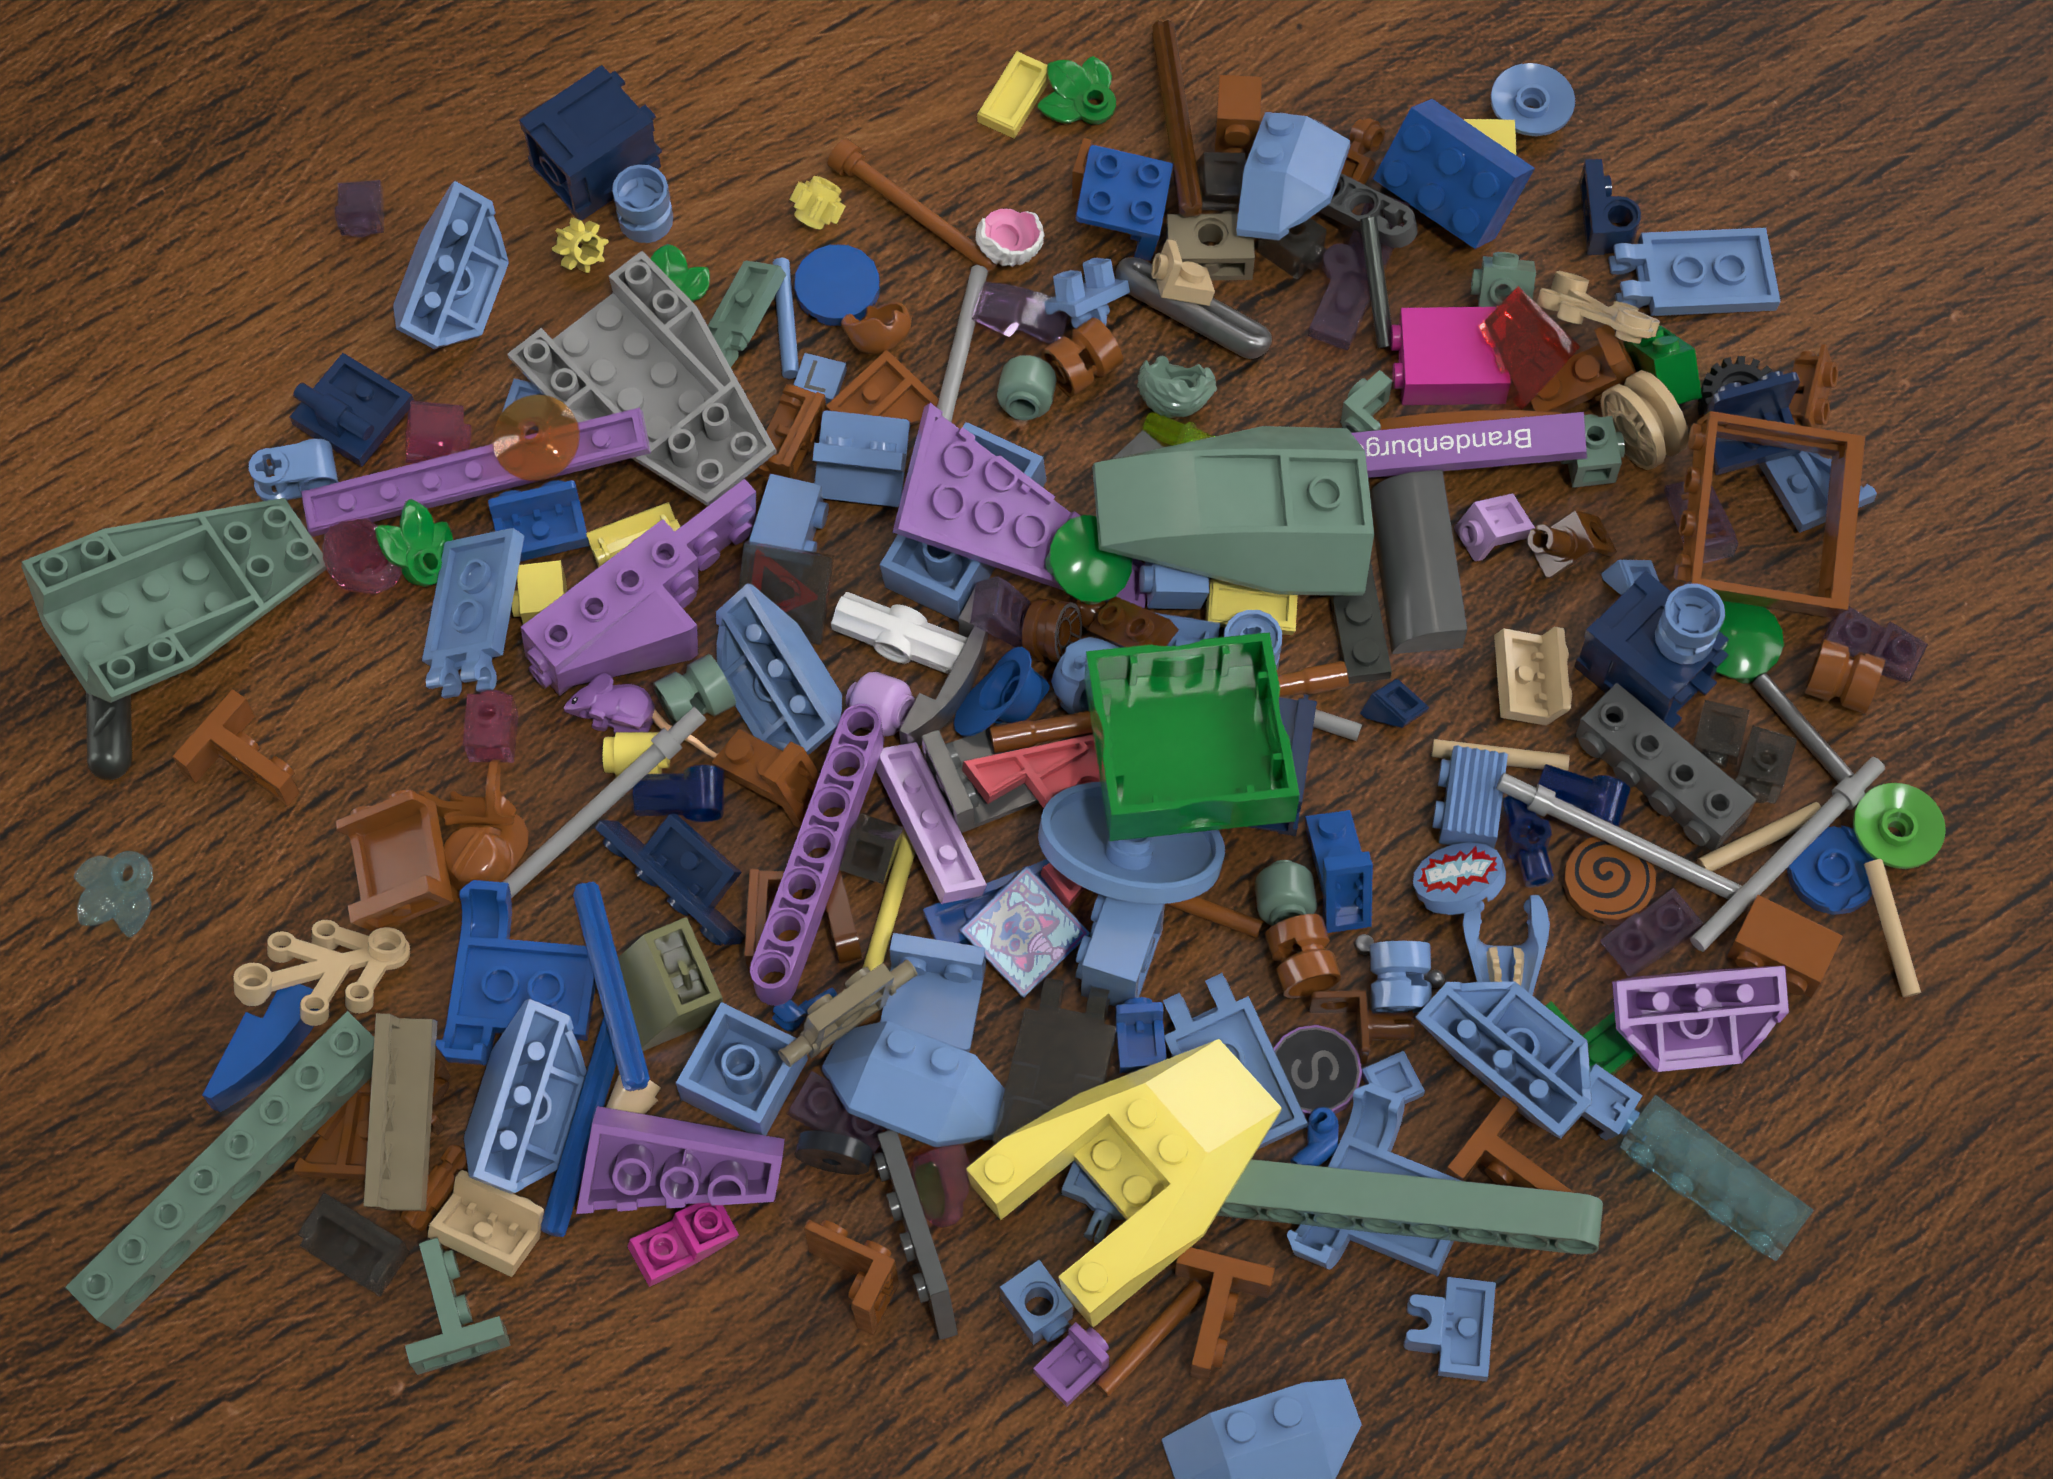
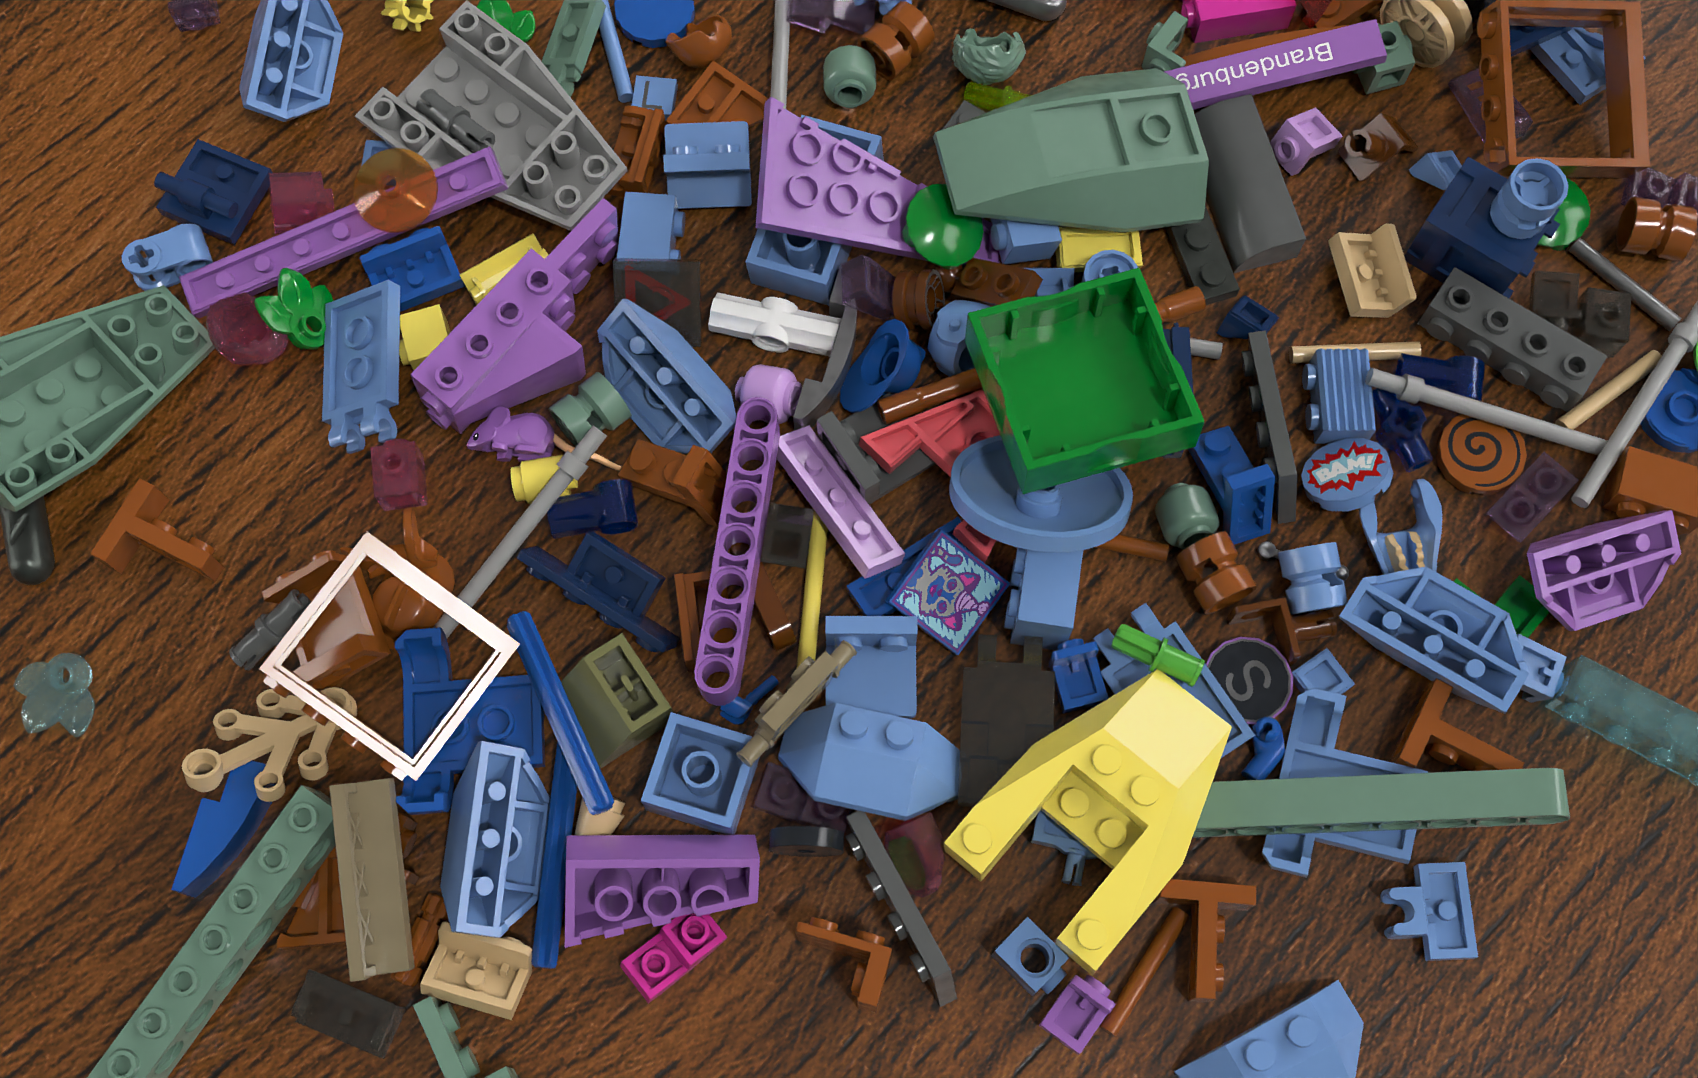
camera: 10 degrees left, 5 degrees up
(338, 860) = (269, 630): none -> dark grey pin
(380, 942) = (356, 732): none -> window
(608, 374) = (454, 121): none -> dark grey pin
(1221, 1024) = (1157, 654): none -> bright green axle
(1389, 820) = (1272, 427): none -> dark grey wing

